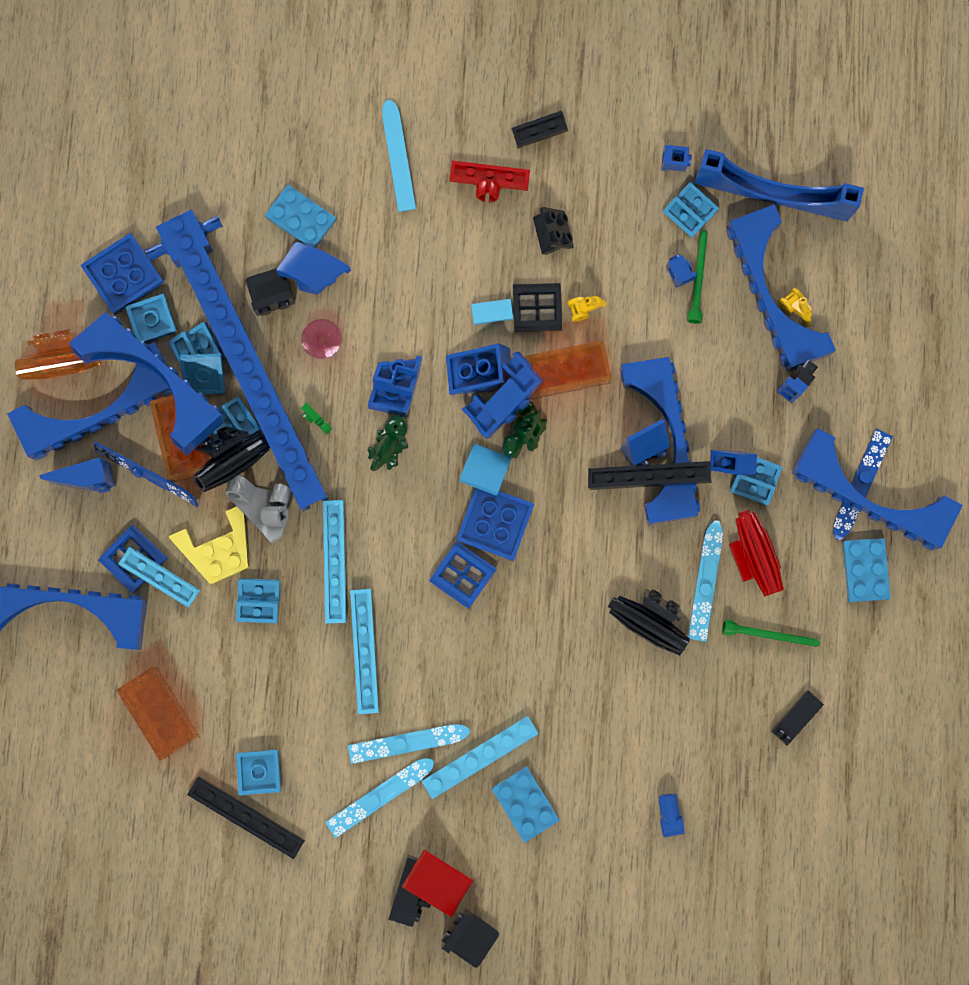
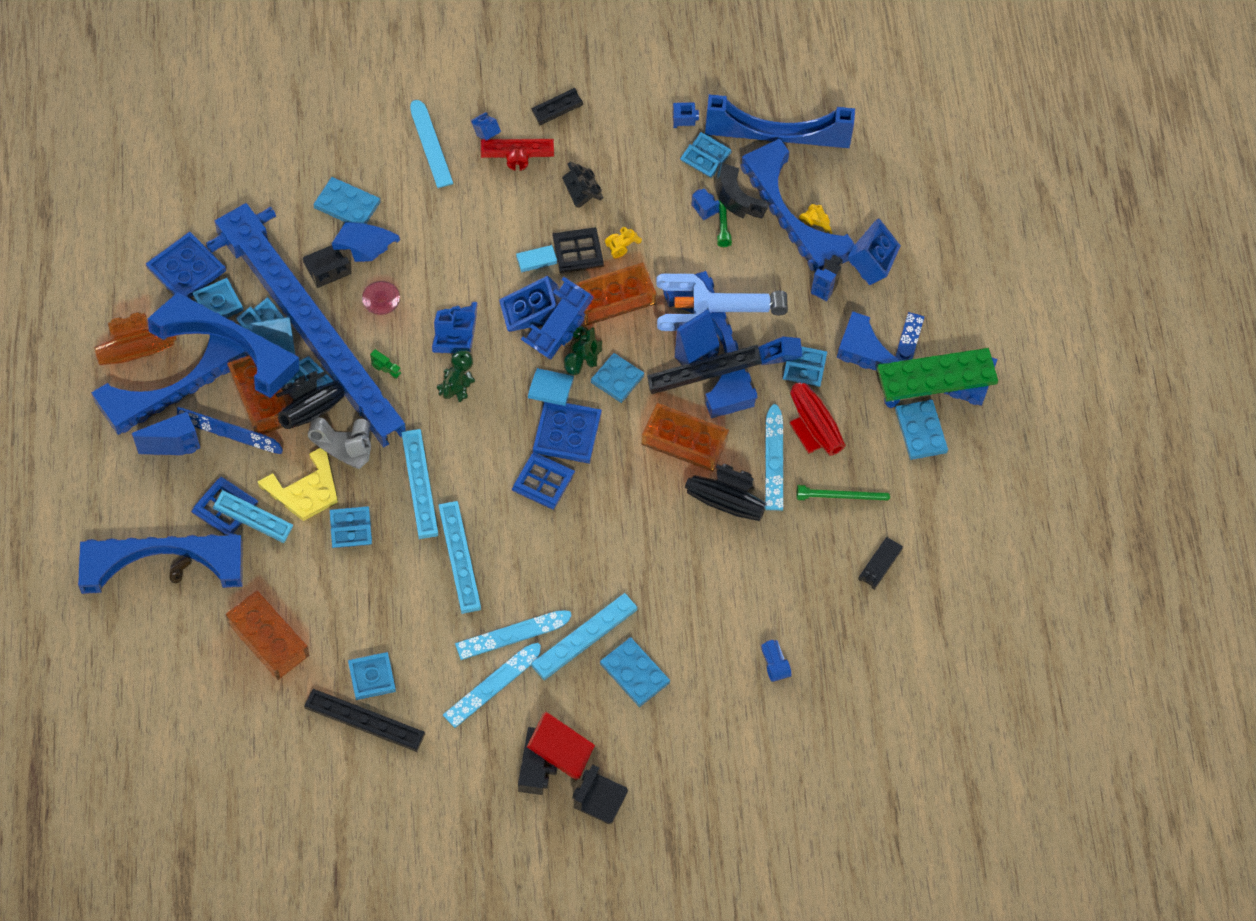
camera: 10 degrees left, 20 degrees down
(76, 624) = (176, 570): none -> dark brown arm
(459, 146) = (485, 126): none -> blue brick
(556, 465) = (617, 377): none -> dark azure plate
(617, 550) = (685, 437): none -> clear orange brick
(663, 398) = (714, 302): none -> light blue piece
(710, 266) = (733, 197): none -> black arch
(853, 359) = (874, 253): none -> blue slope
(895, 516) = (937, 374): none -> green plate

